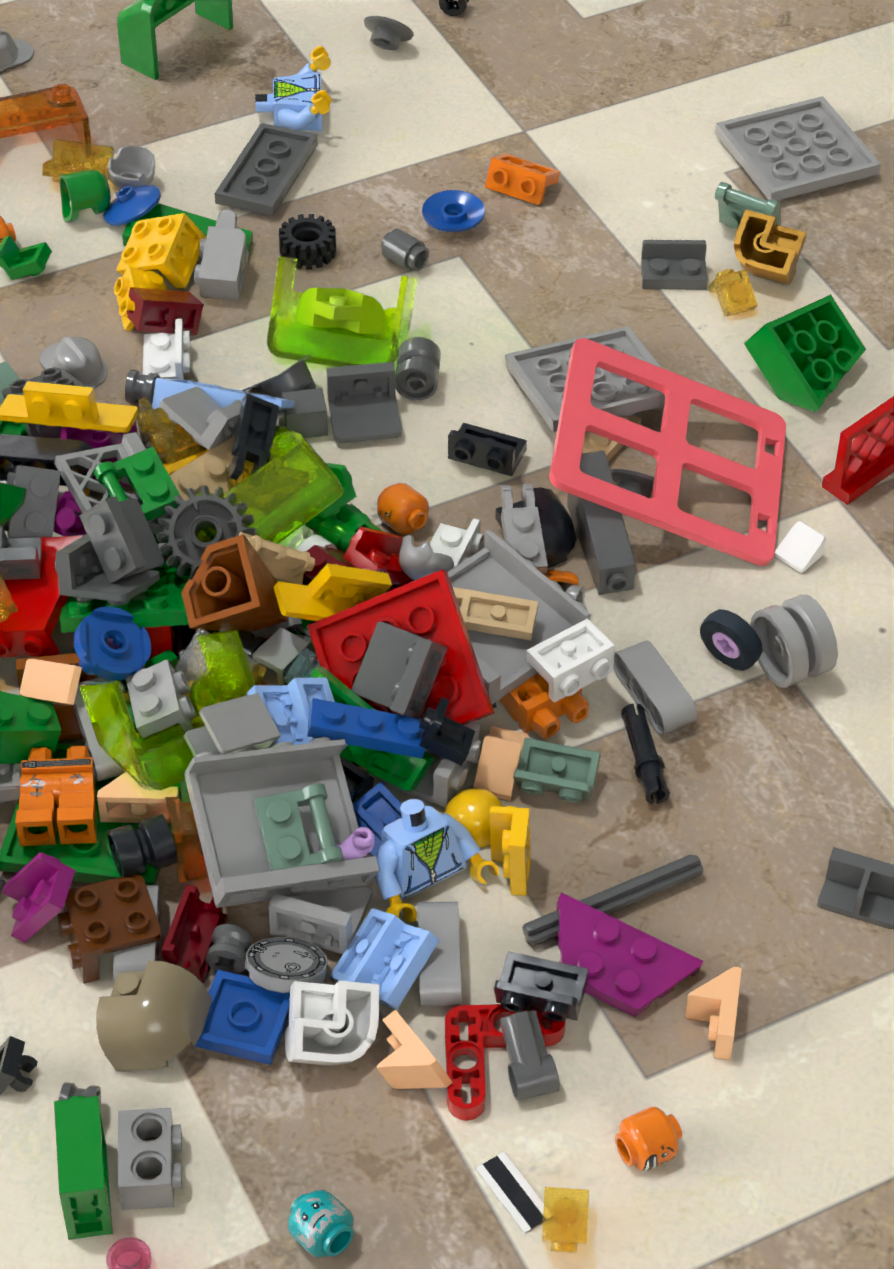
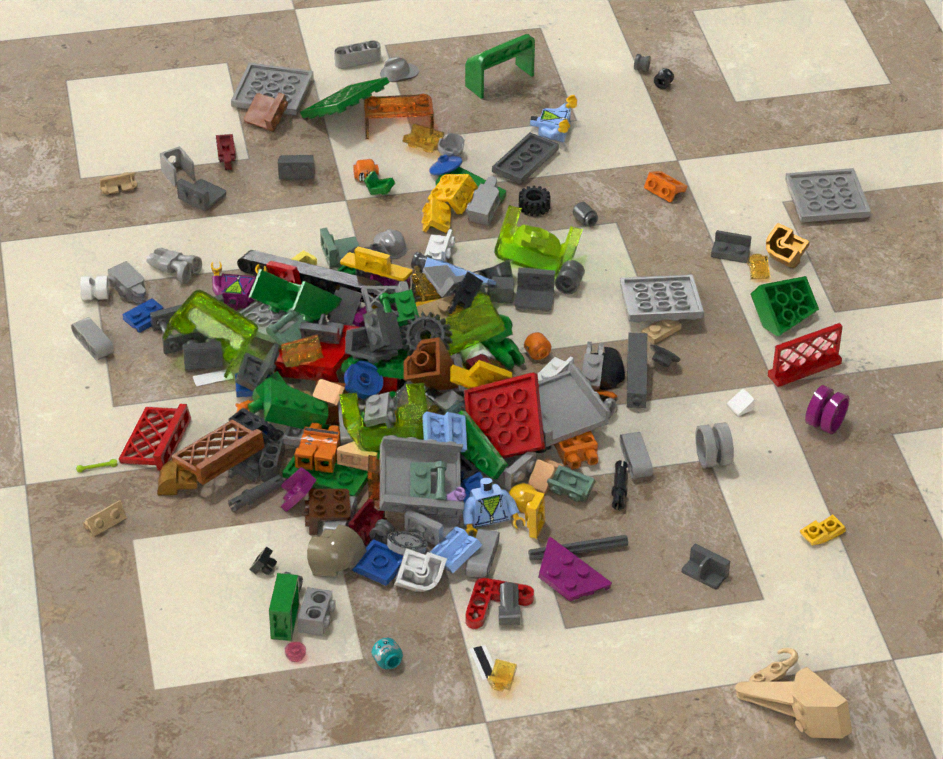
camera: 15 degrees right, 5 degrees down
(85, 191) = (421, 153): green helmet -> none
(147, 845) = (352, 476): black wheel -> none
(159, 308) = (441, 222): dark red hinge -> none
(233, 727) = (410, 426): light grey piece -> none
(283, 562) = (459, 356): tan hinge -> none
(365, 727) = (477, 442): blue plate -> none
(377, 552) = (514, 362): red bracket -> none
(387, 32) = (617, 92): dark grey piece -> none
(399, 670) = (501, 418): dark grey bracket -> none
(411, 1062) = (451, 595): light nougat slope -> none
(421, 560) = (535, 367): light grey hair -> none
(445, 735) = (515, 453): black bracket -> none
(453, 211) = (619, 197): blue dish -> none
(486, 449) = (592, 324): black bracket -> none
(497, 613) = (560, 401): tan plate -> none
(541, 986) = (526, 575): bracket -> none
(573, 659) = (593, 431): white bracket -> none
(648, 1138) = (554, 651): orange head -> none
(670, 451) = (686, 341): coral window -> none
(717, 1004) = (610, 603): light nougat slope -> none
(731, 639) = (683, 439): black bush -> none
(734, 202) = (774, 217): sand green plate -> none

